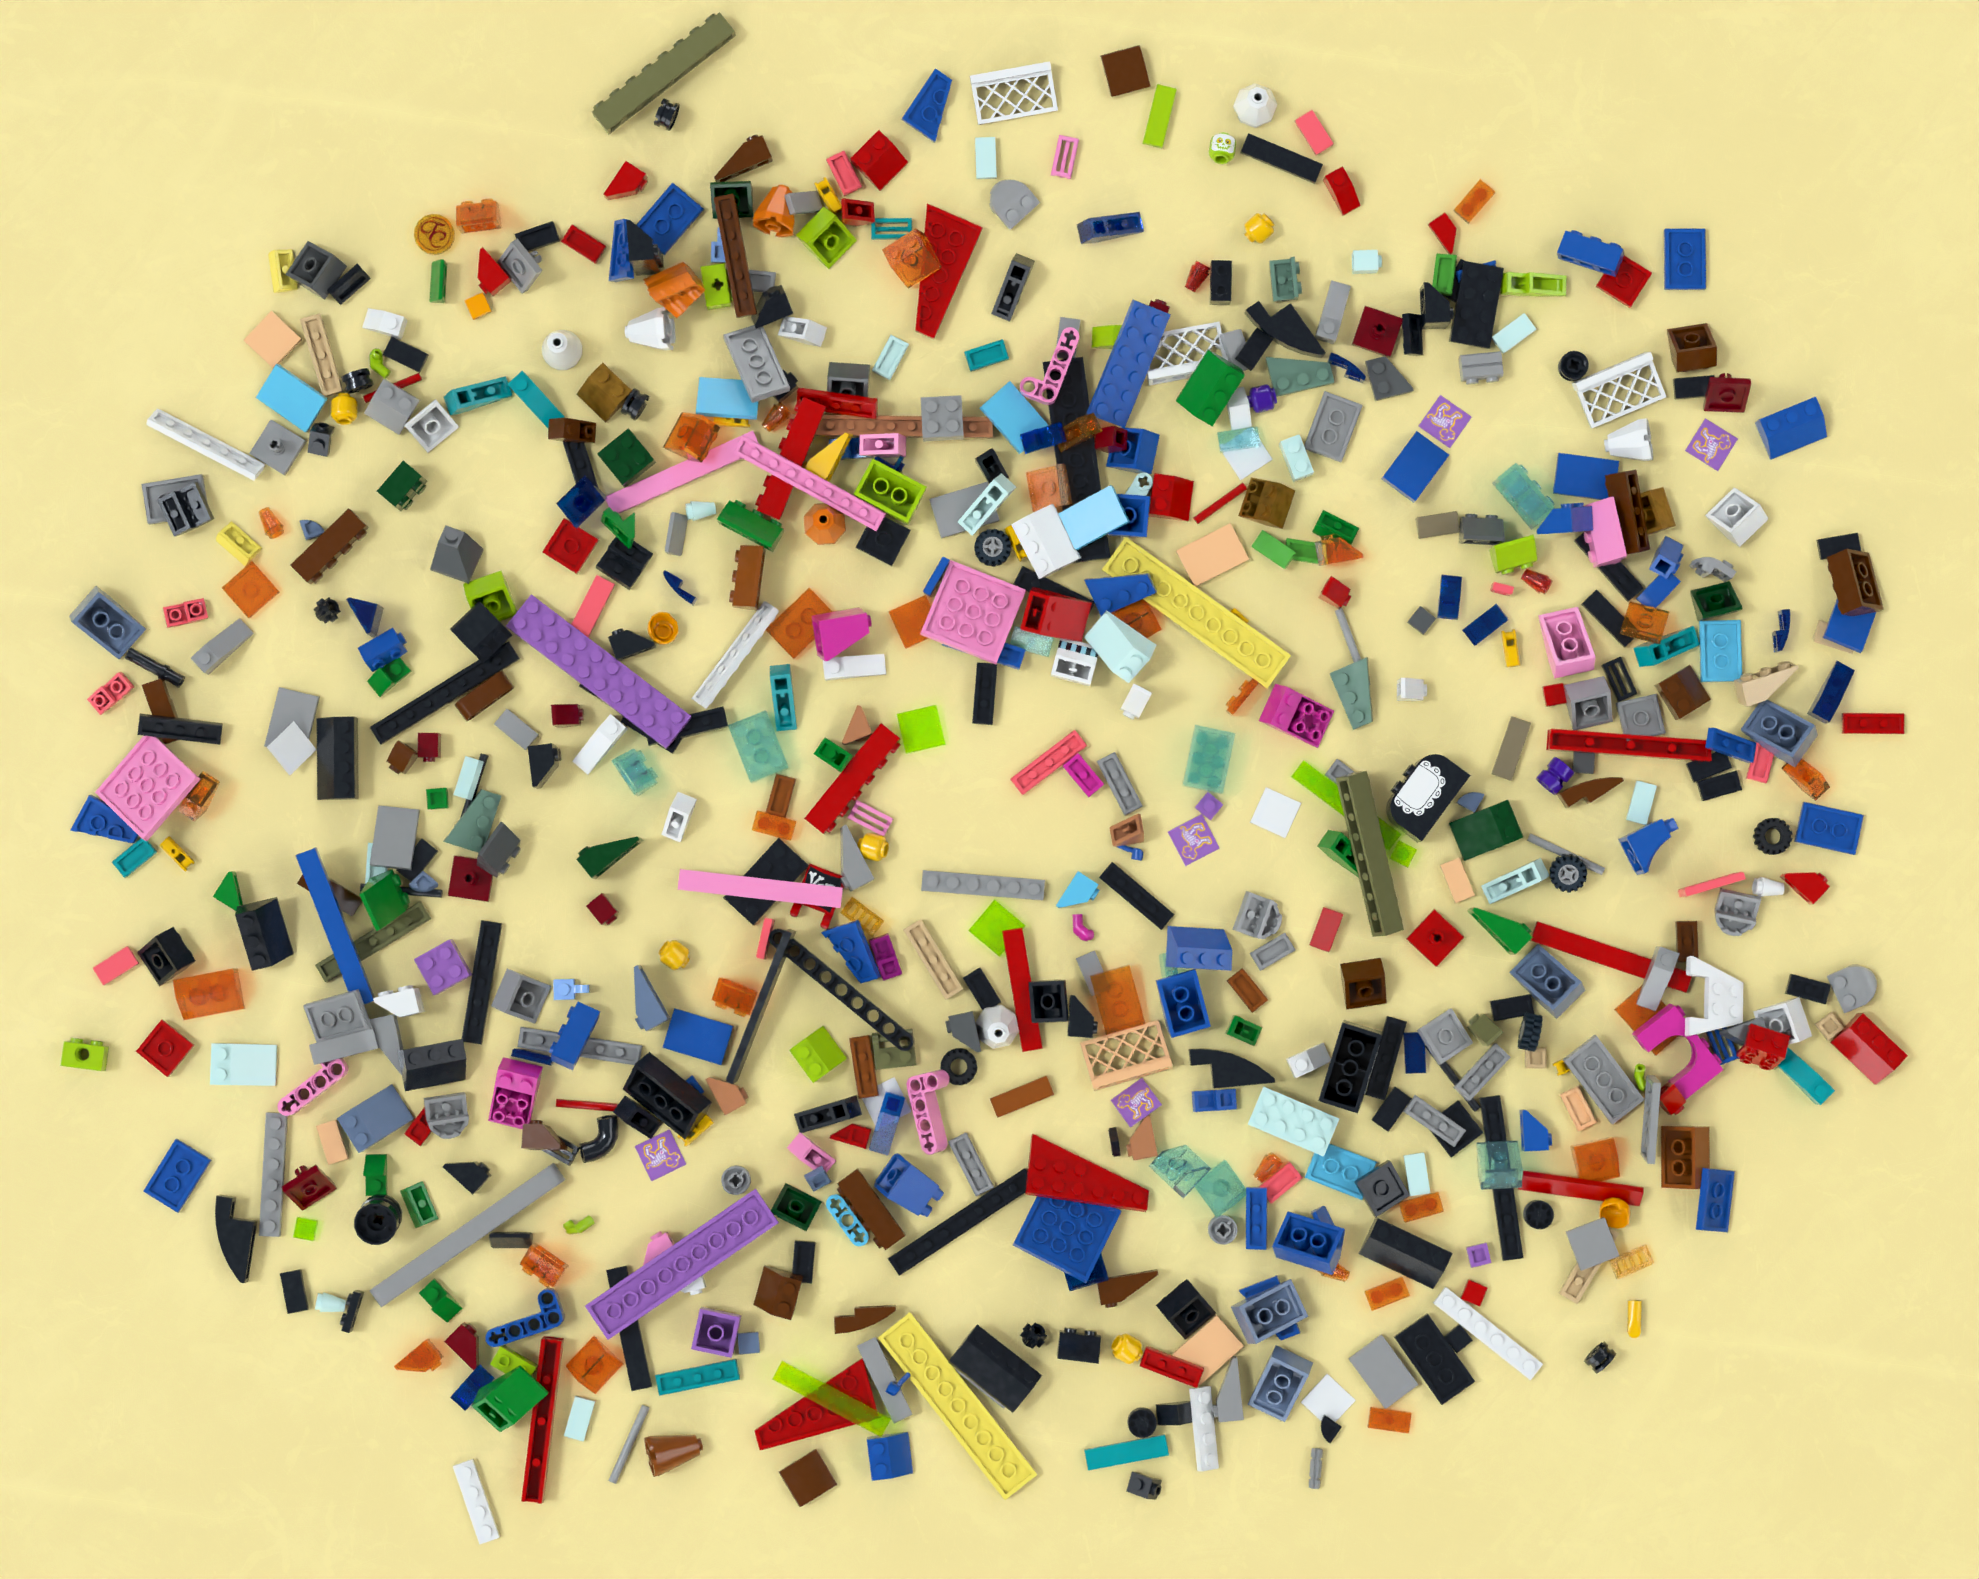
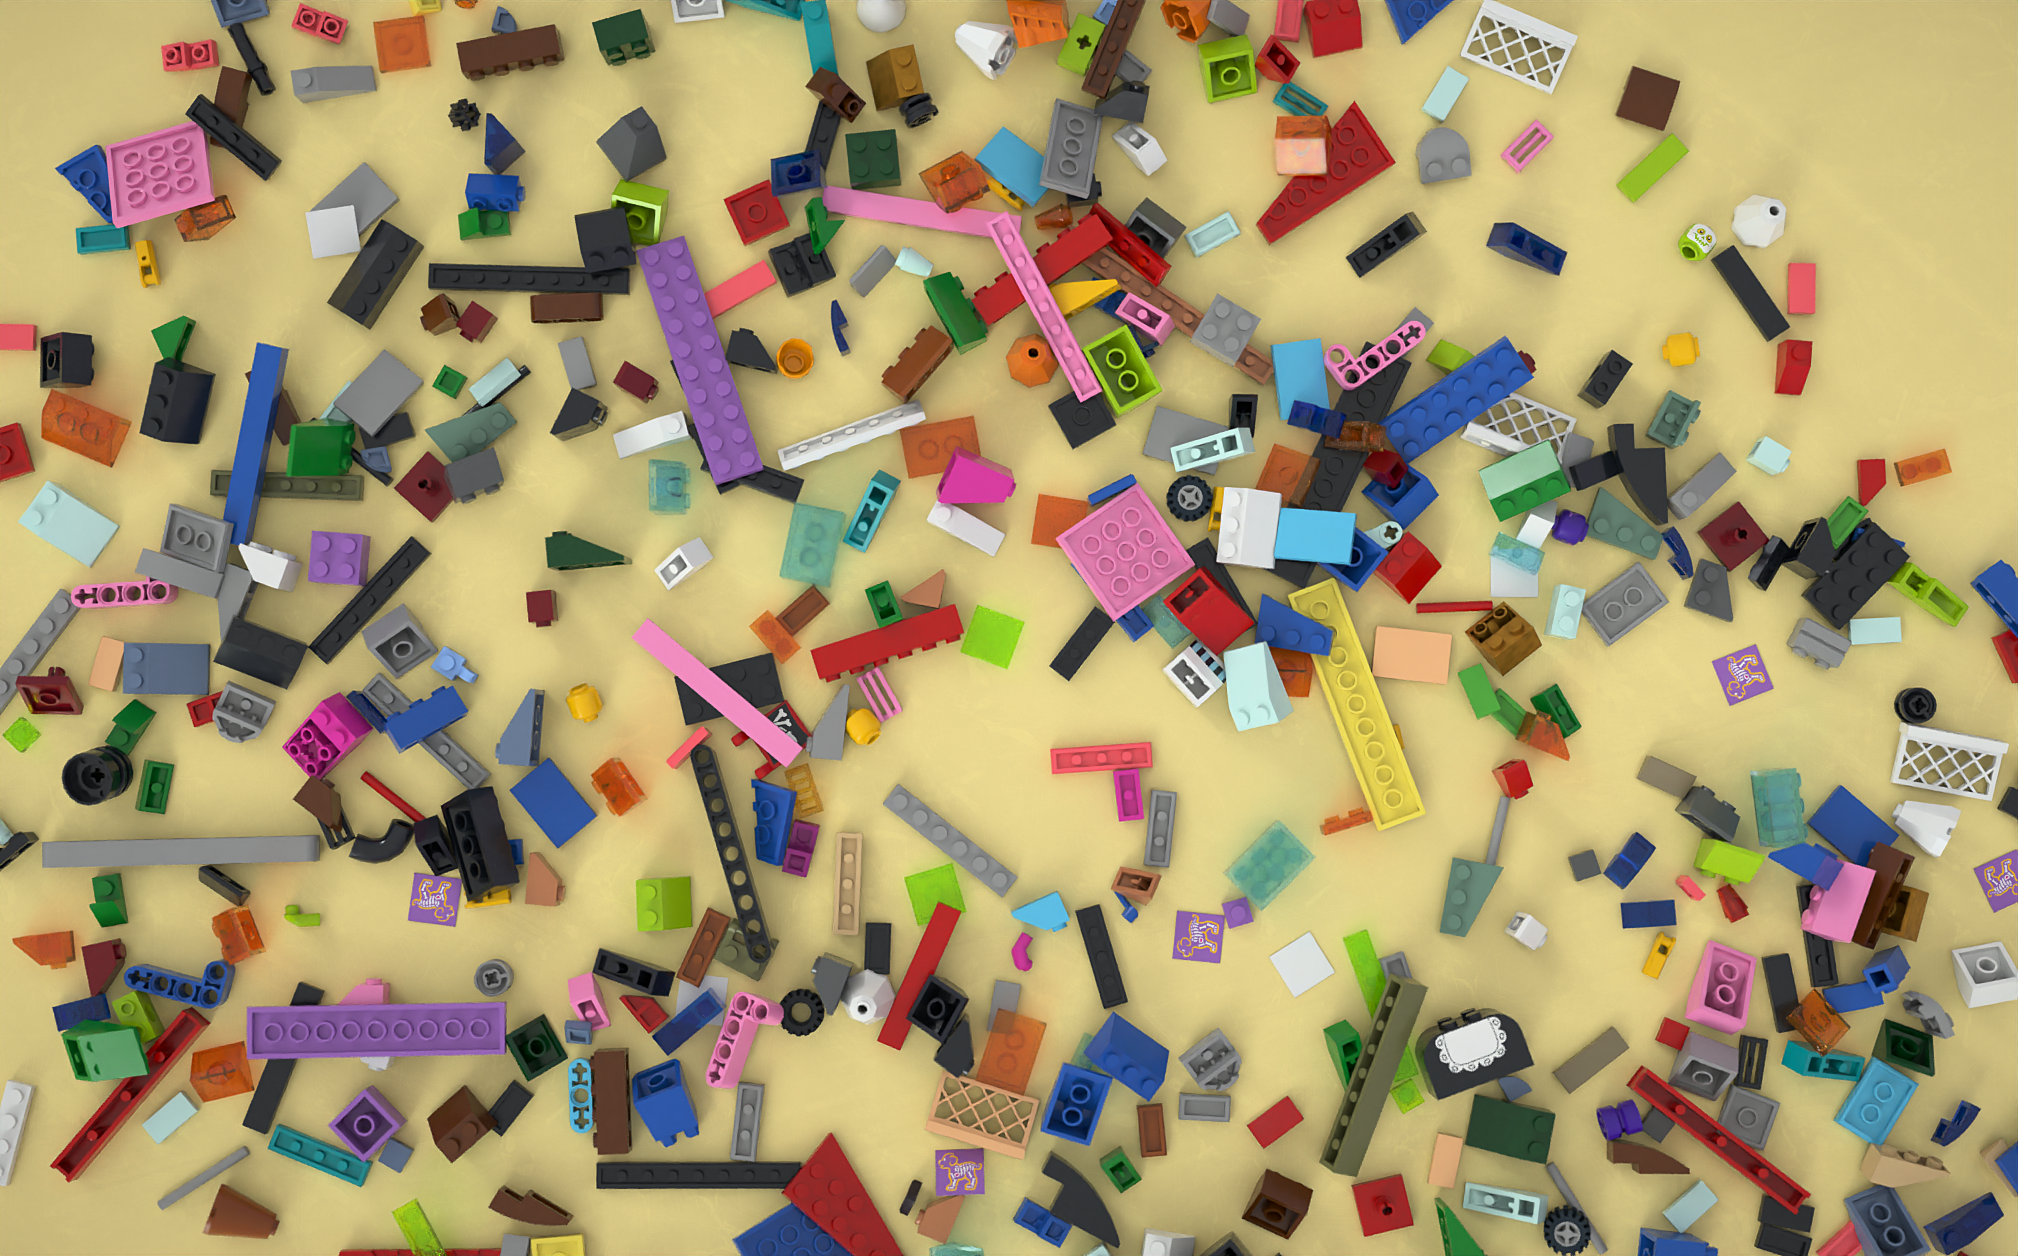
camera: 30 degrees right, 0 degrees up
(469, 1174) = (223, 789): black slope -> none
(760, 1006) = (636, 815): black tile -> none
(830, 198) = (1257, 31): yellow bar -> none
(986, 355) = (1312, 297): teal tile -> none
(1021, 1096) = (846, 1086): dark orange tile -> none
(1135, 702) = (1233, 755): white slope -> none
(1196, 276) = (1584, 356): clear red cone -> none
(1296, 715) = (1390, 878): dark pink slope -> none
(1415, 466) = (1682, 702): blue slope -> none
(1682, 692) = (1807, 1120): reddish brown slope -> none
(1730, 745) = (1826, 1210): blue plate -> none

